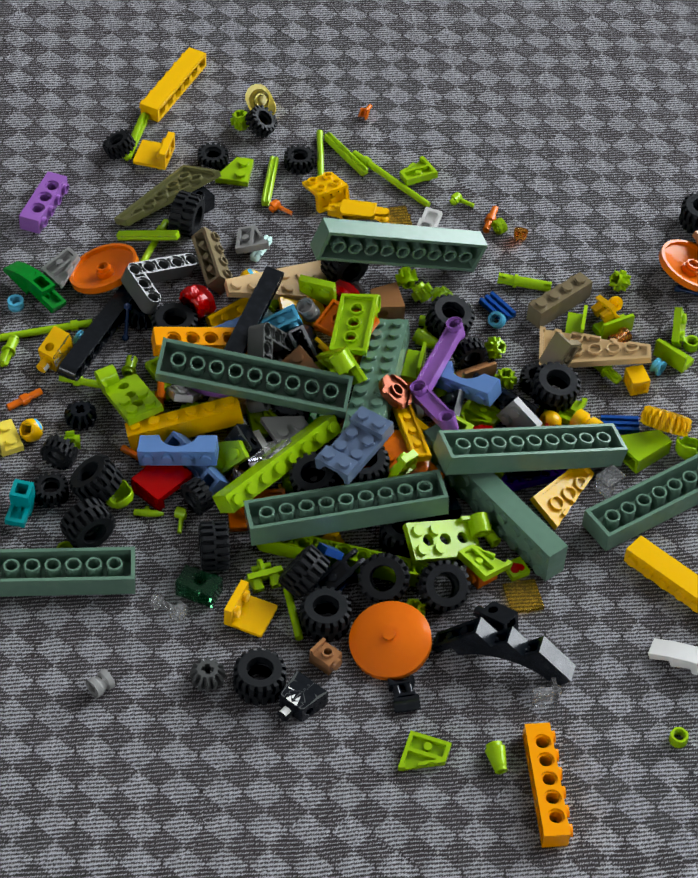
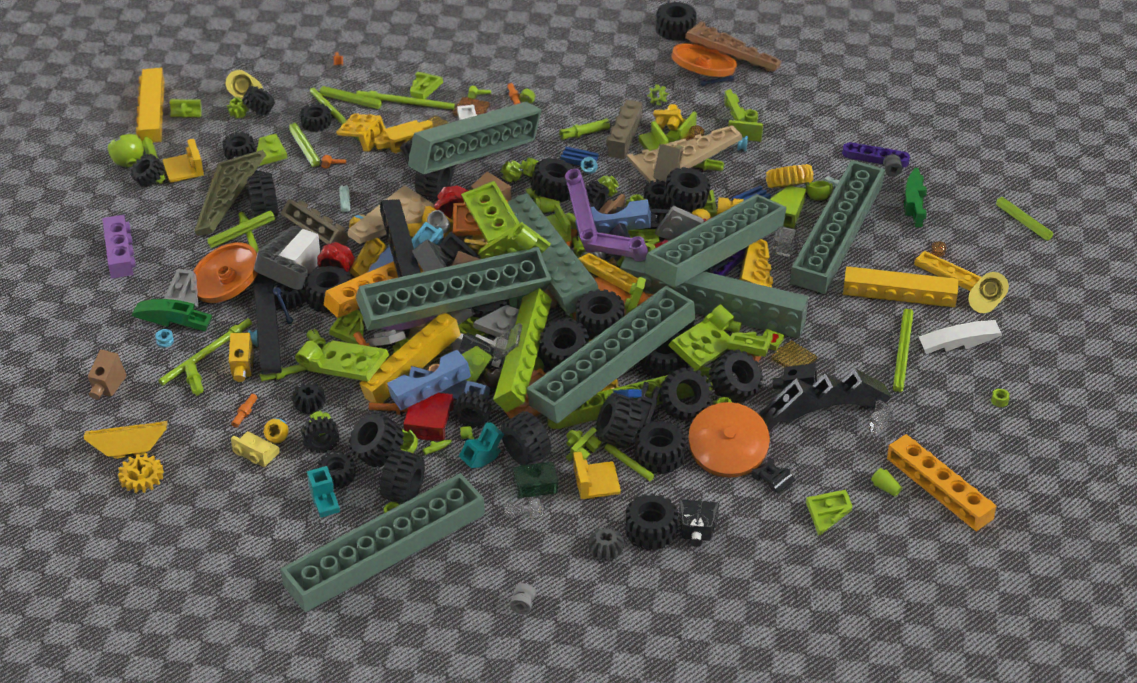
camera: 30 degrees left, 5 degrees down
(117, 117) = (126, 150): none -> lime cylinder
(173, 280) = (303, 250): none -> white brick
(177, 536) = (483, 450): none -> teal brick
(199, 100) = (185, 108): none -> lime hips
(250, 240) = (332, 195): light grey wing -> none
(318, 289) = (437, 199): lime wing -> none
(325, 657) = (688, 480): medium nougat brick -> none
(356, 444) = (586, 296): sand blue piece -> none
(395, 391) = (573, 246): copper tile -> none
(406, 277) = (492, 164): lime gear -> none
(450, 214) = (480, 106): none -> clear orange piece
(520, 233) = (549, 95): clear orange hinge -> none
(628, 643) = (903, 349): none -> lime axle
(636, 380) = (736, 160): yellow brick -> none

